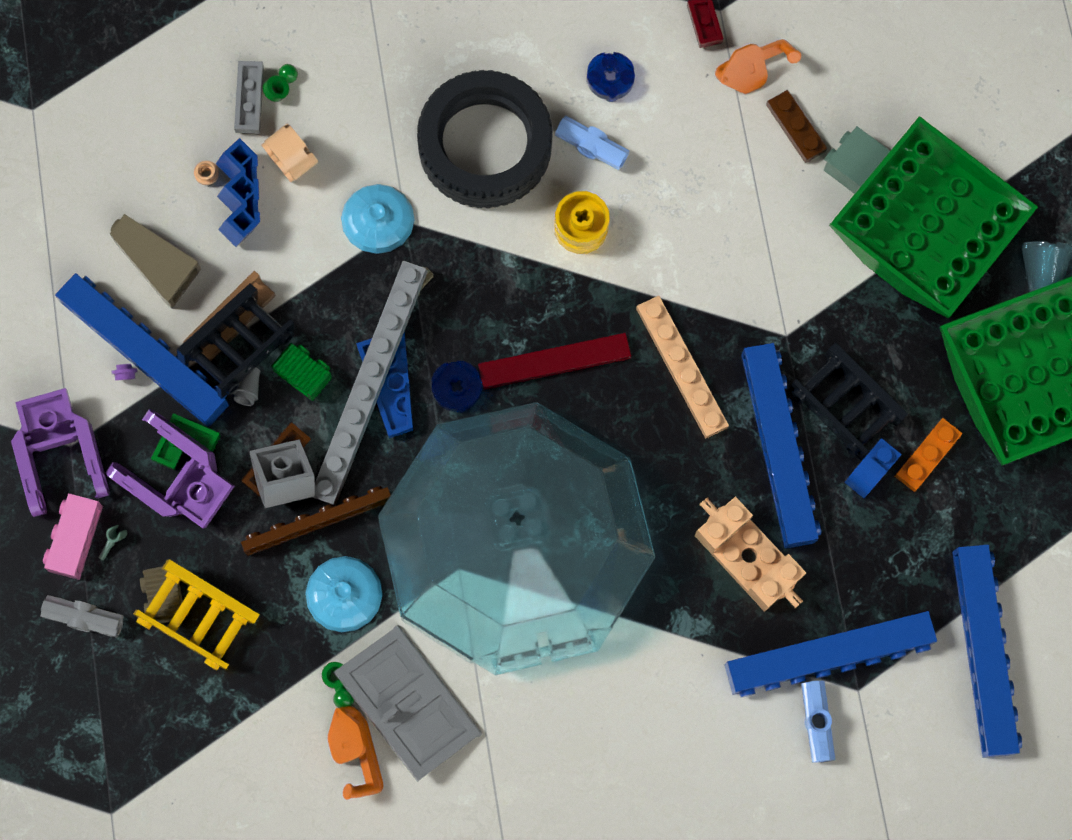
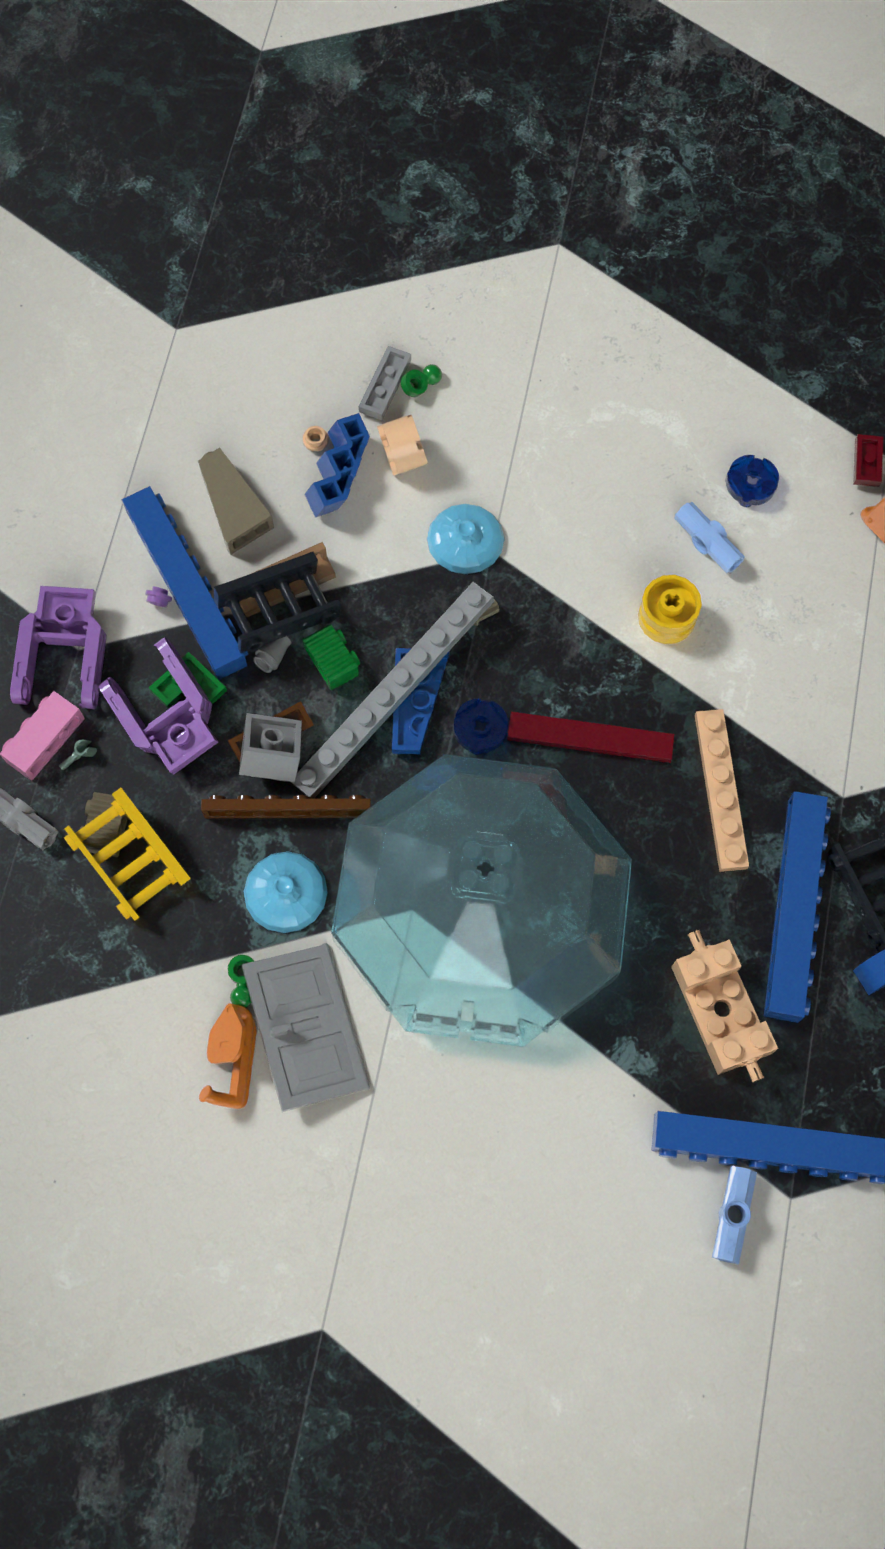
camera: 25 degrees right, 5 degrees down
(478, 89) = (605, 446): black tyre -> none

